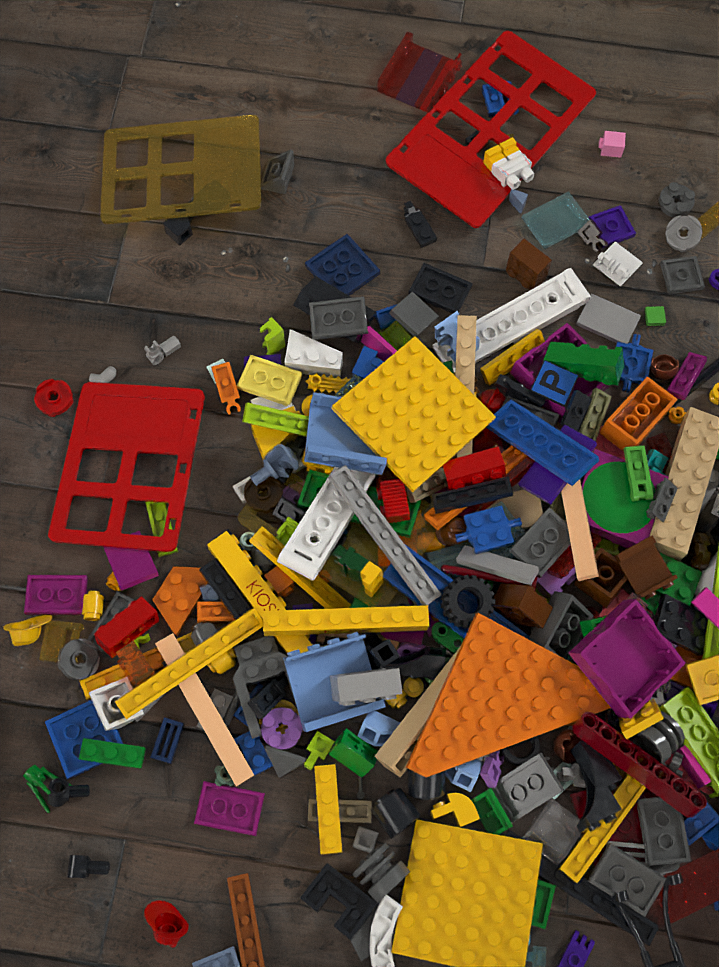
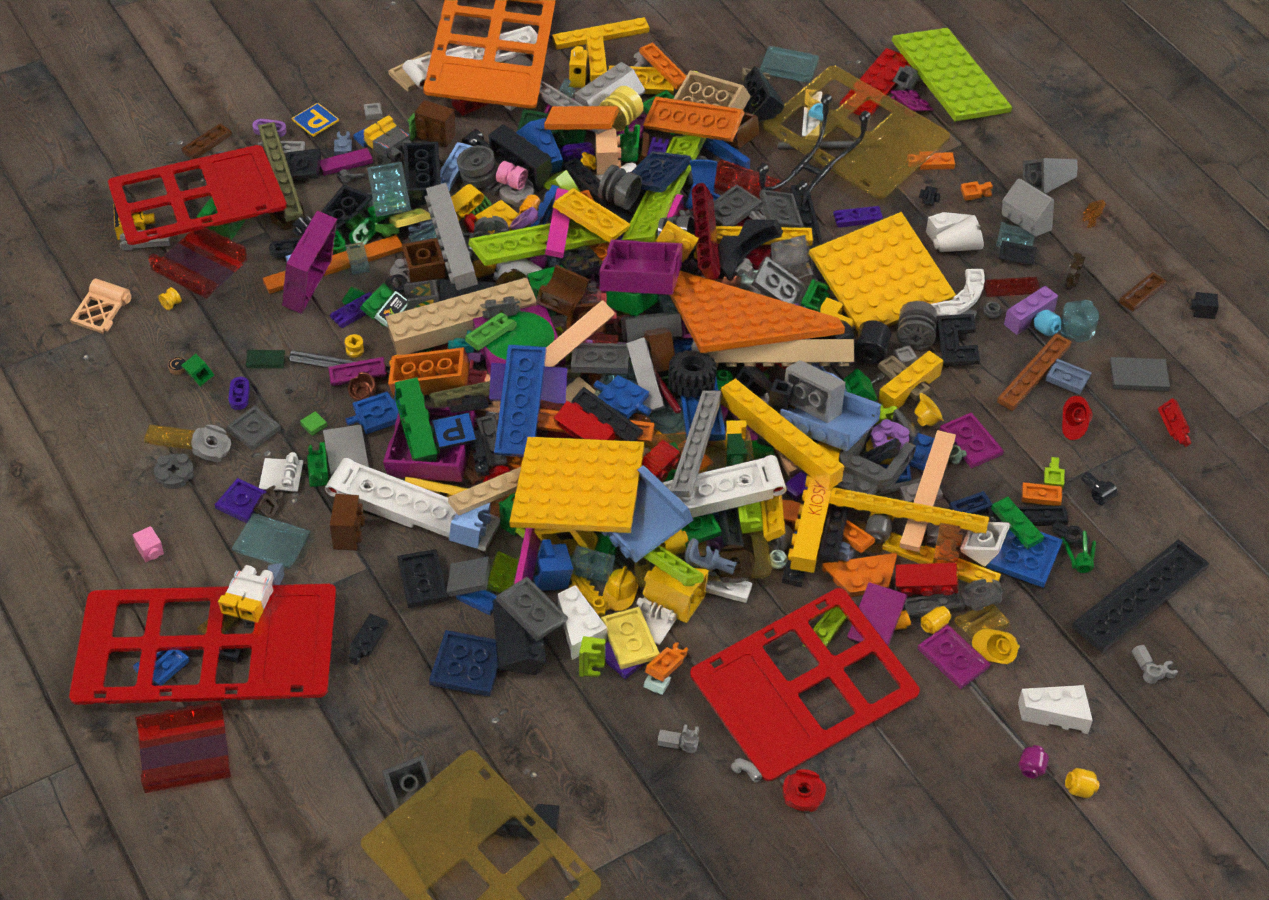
camera: 130 degrees left, 20 degrees down
(112, 786) = (1038, 515): none -> black tile
(124, 810) = (1041, 494): none -> orange plate
(131, 839) = (1053, 475): none -> lime plate
(284, 796) = (927, 411): none -> yellow piece
(604, 290) = (317, 466): none -> green hinge

